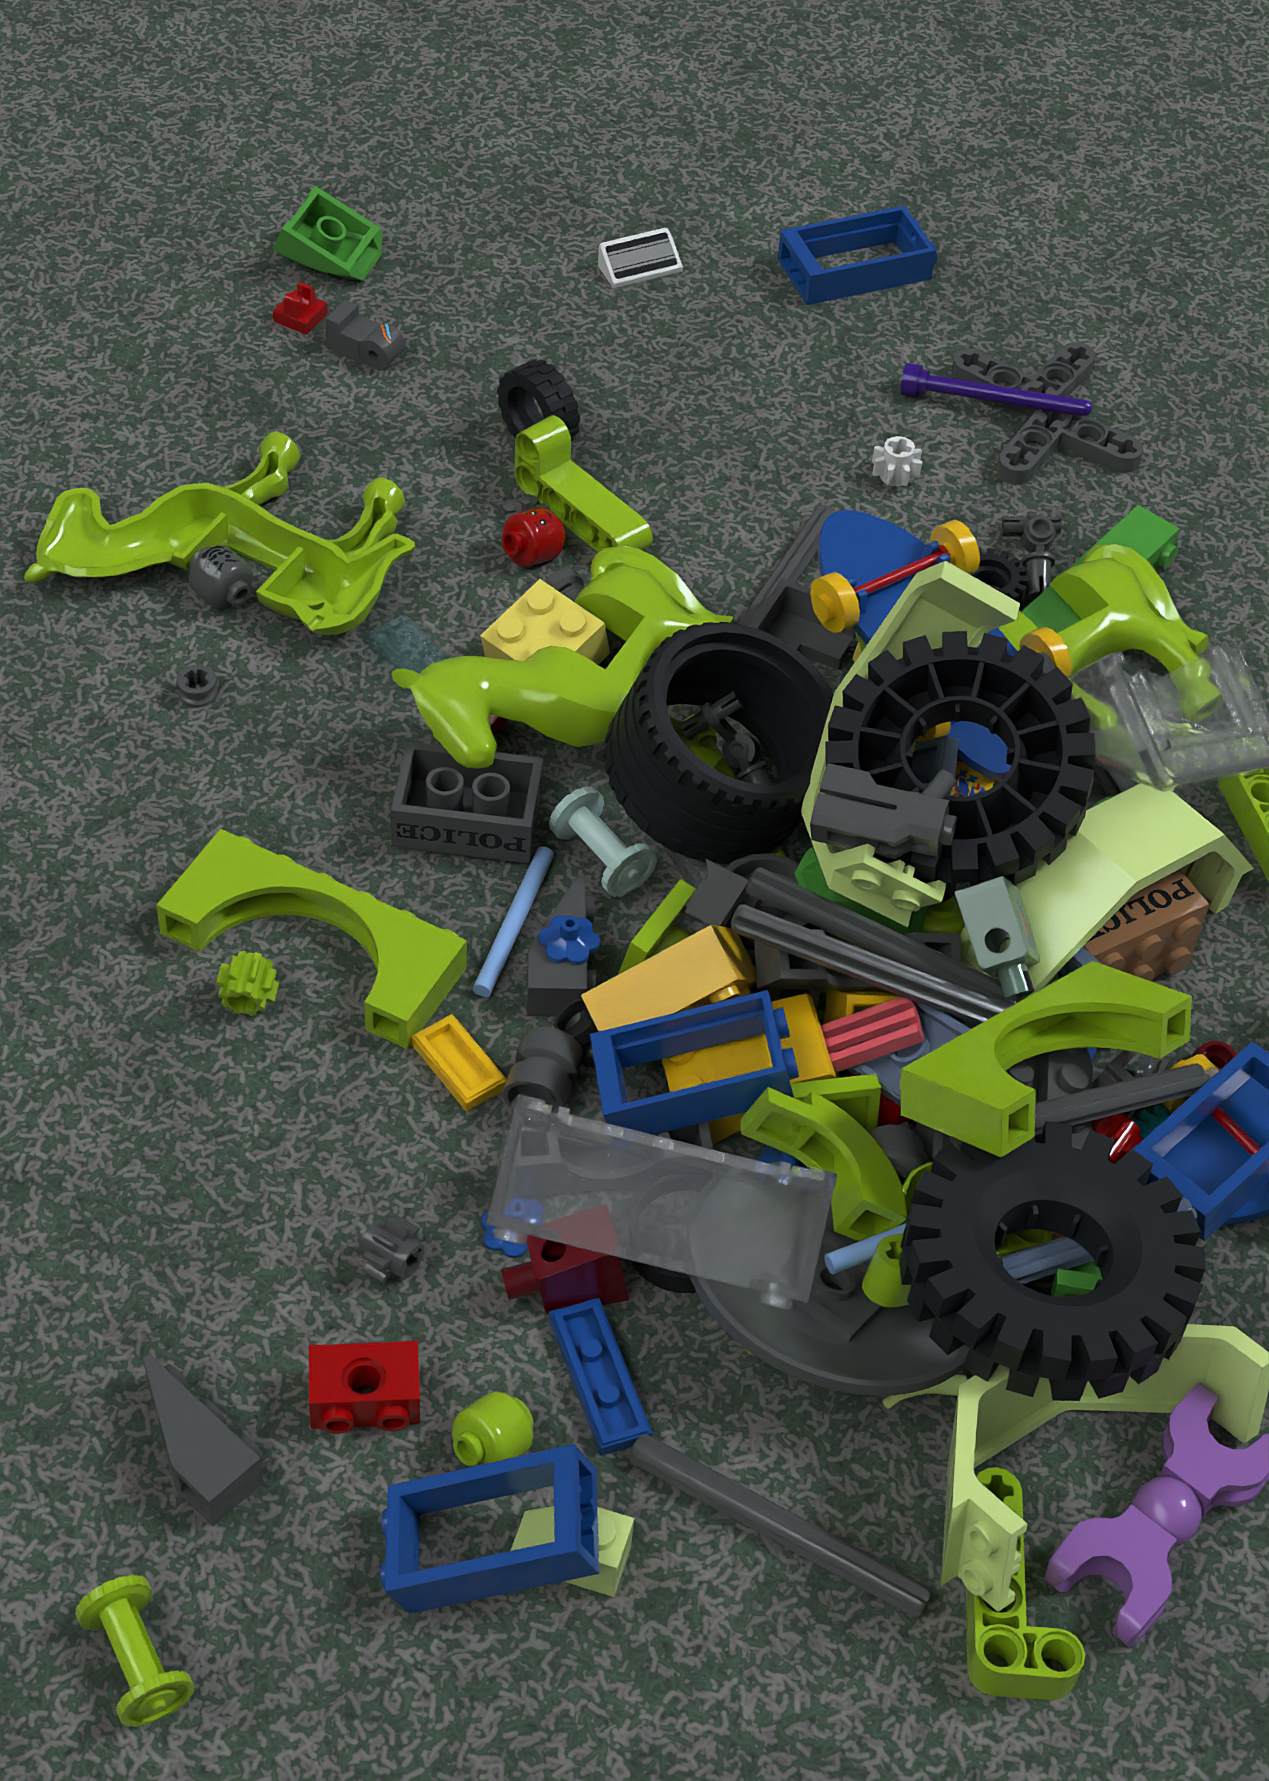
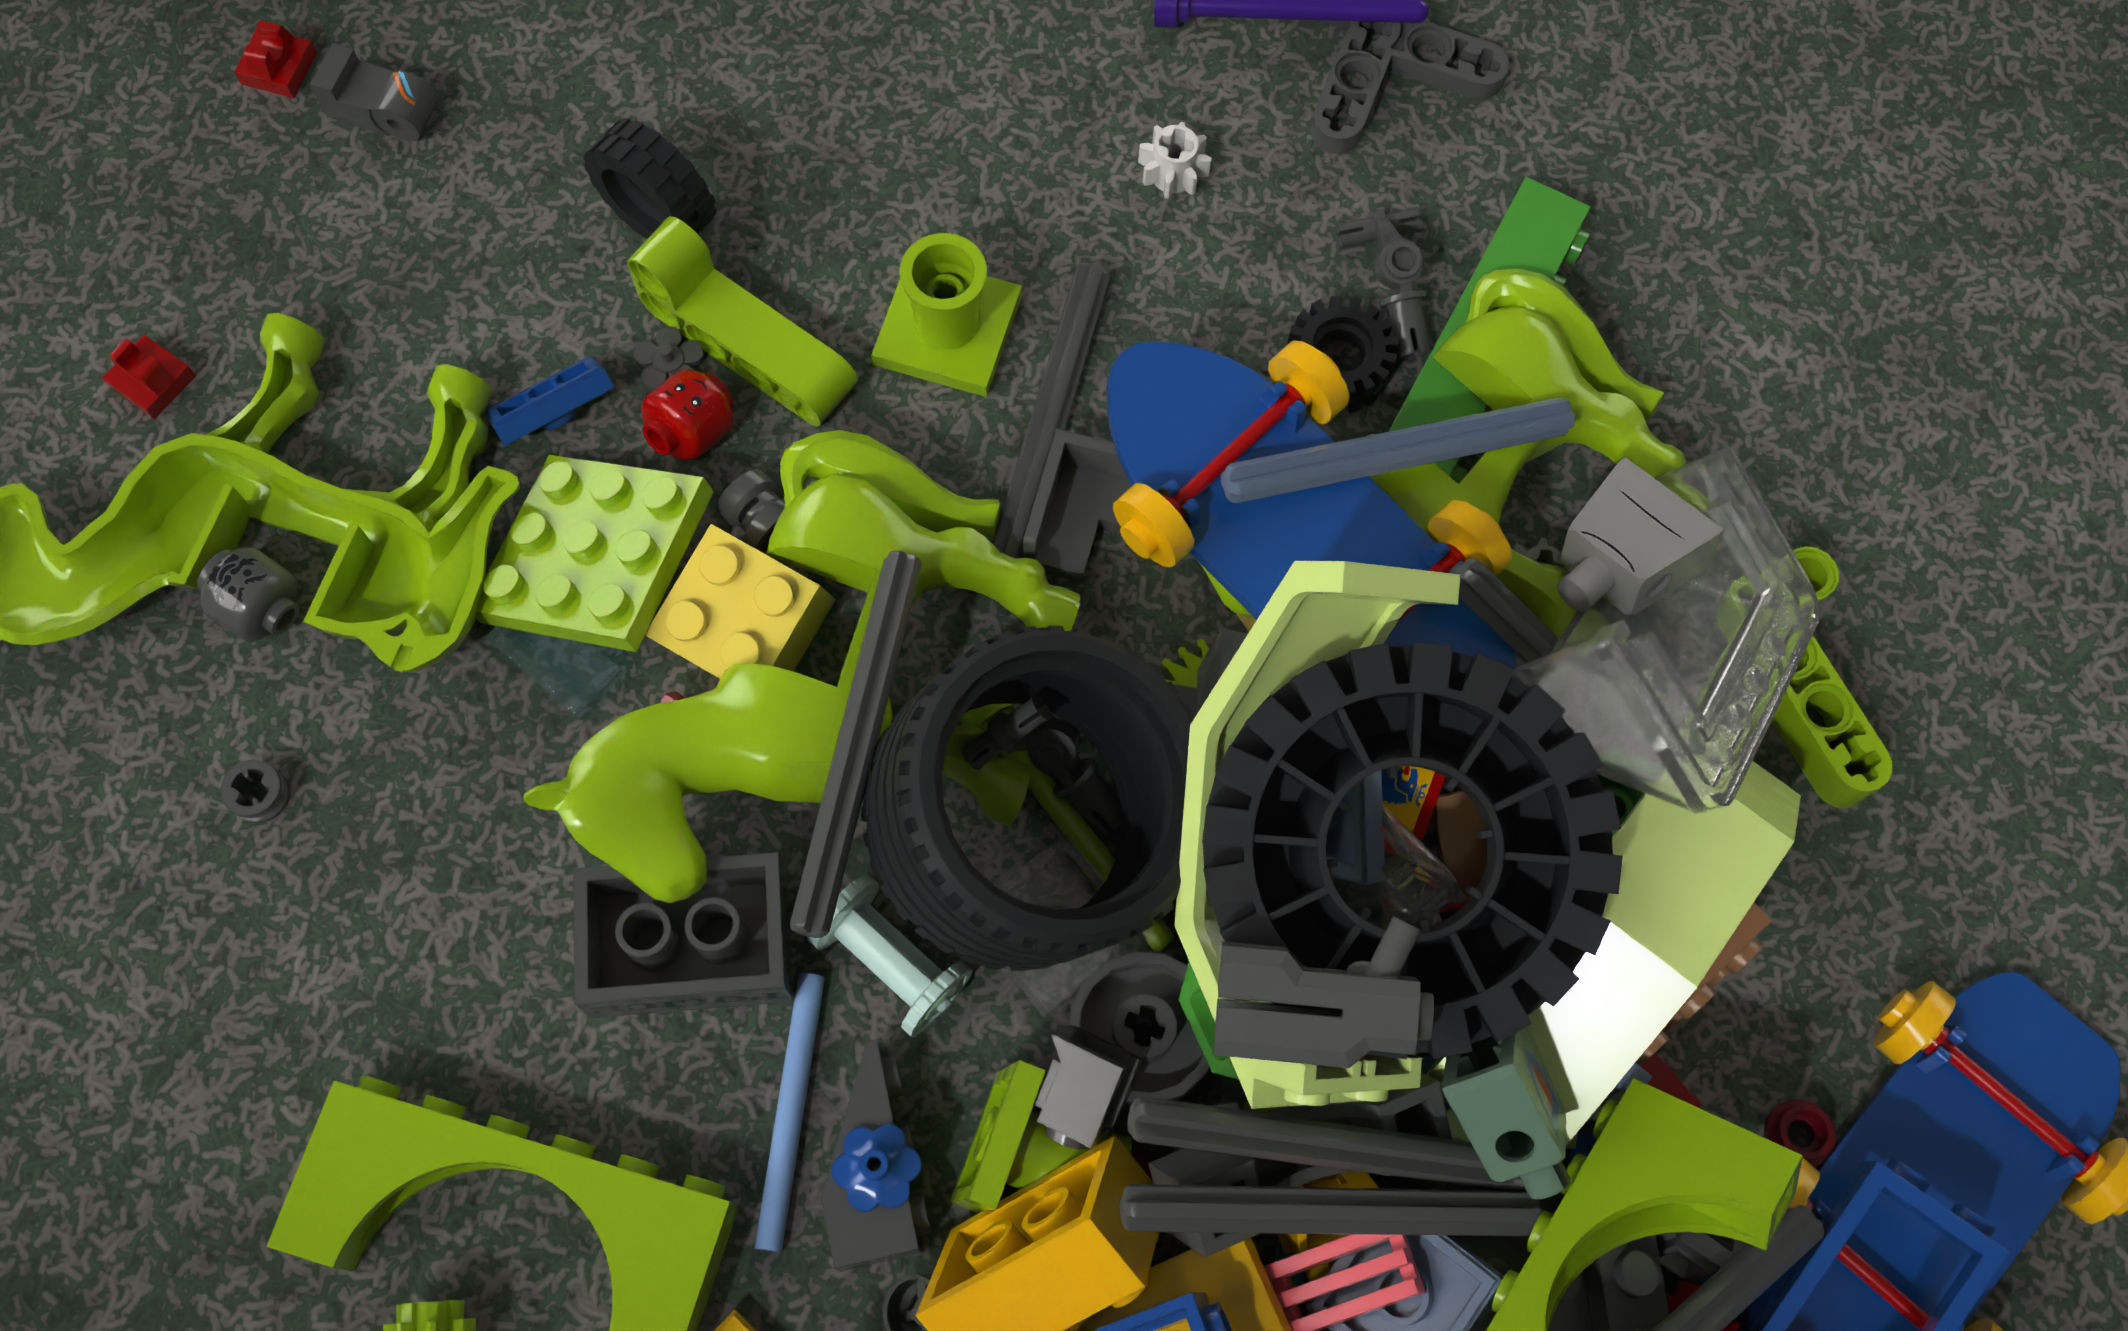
camera: 10 degrees left, 20 degrees up
(177, 458) = (147, 375): none -> red tile
(442, 516) = (549, 401): none -> blue plate
(454, 592) = (593, 551): none -> lime plate
(609, 699) = (855, 746): none -> dark grey axle
(718, 517) = (947, 316): none -> lime plant
(1045, 603) = (1396, 450): none -> sand blue axle
(1179, 685) = (1634, 543): none -> light grey torso

